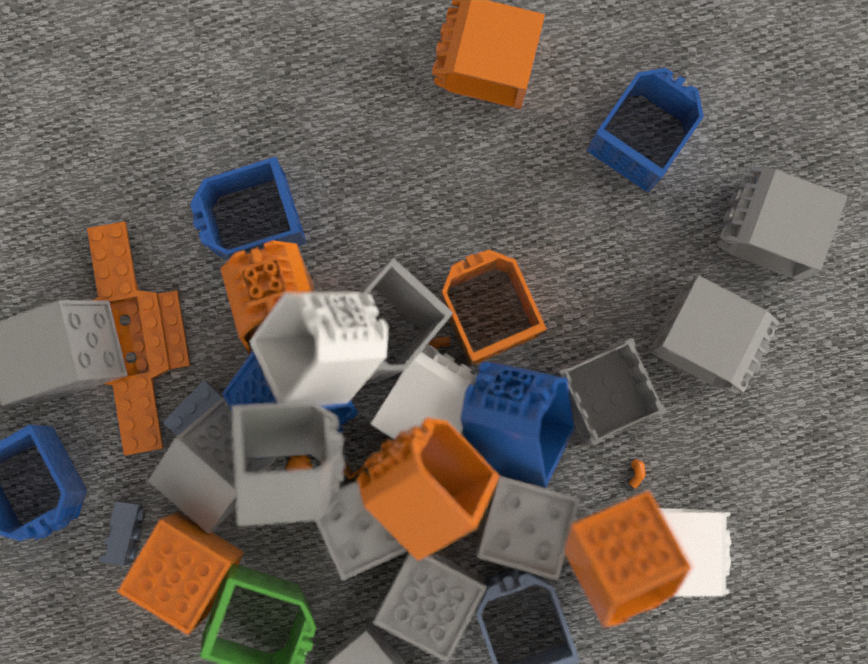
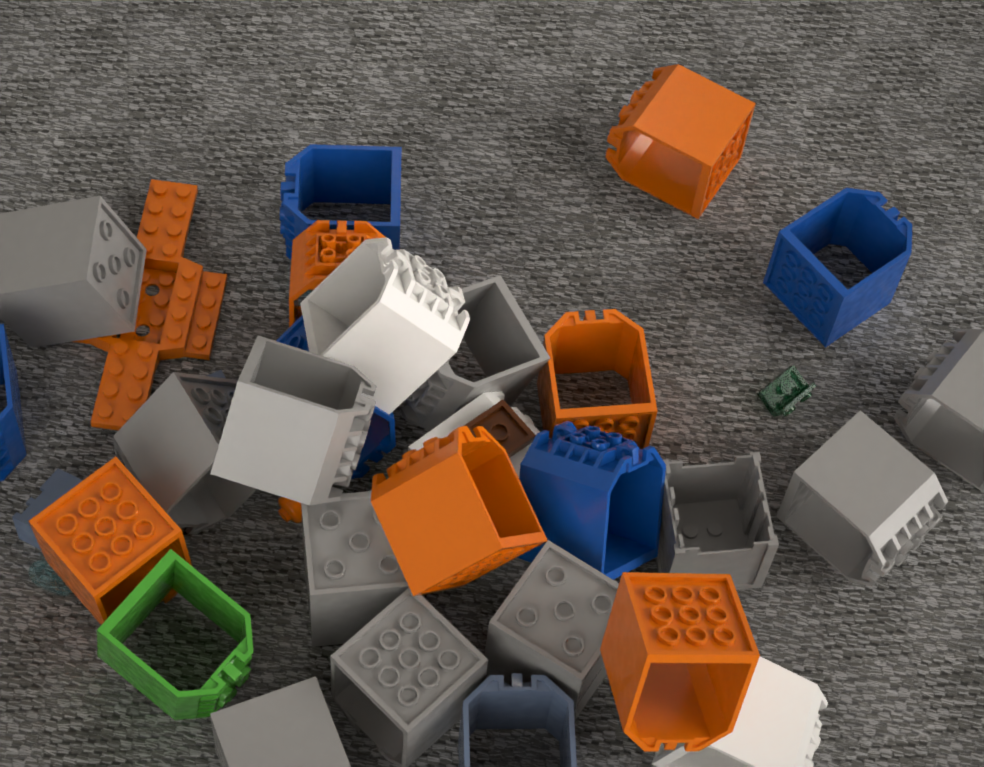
camera: 15 degrees right, 25 degrees down
(434, 393) = (504, 427): none -> reddish brown plate
(630, 246) = (785, 392): none -> clear green bracket

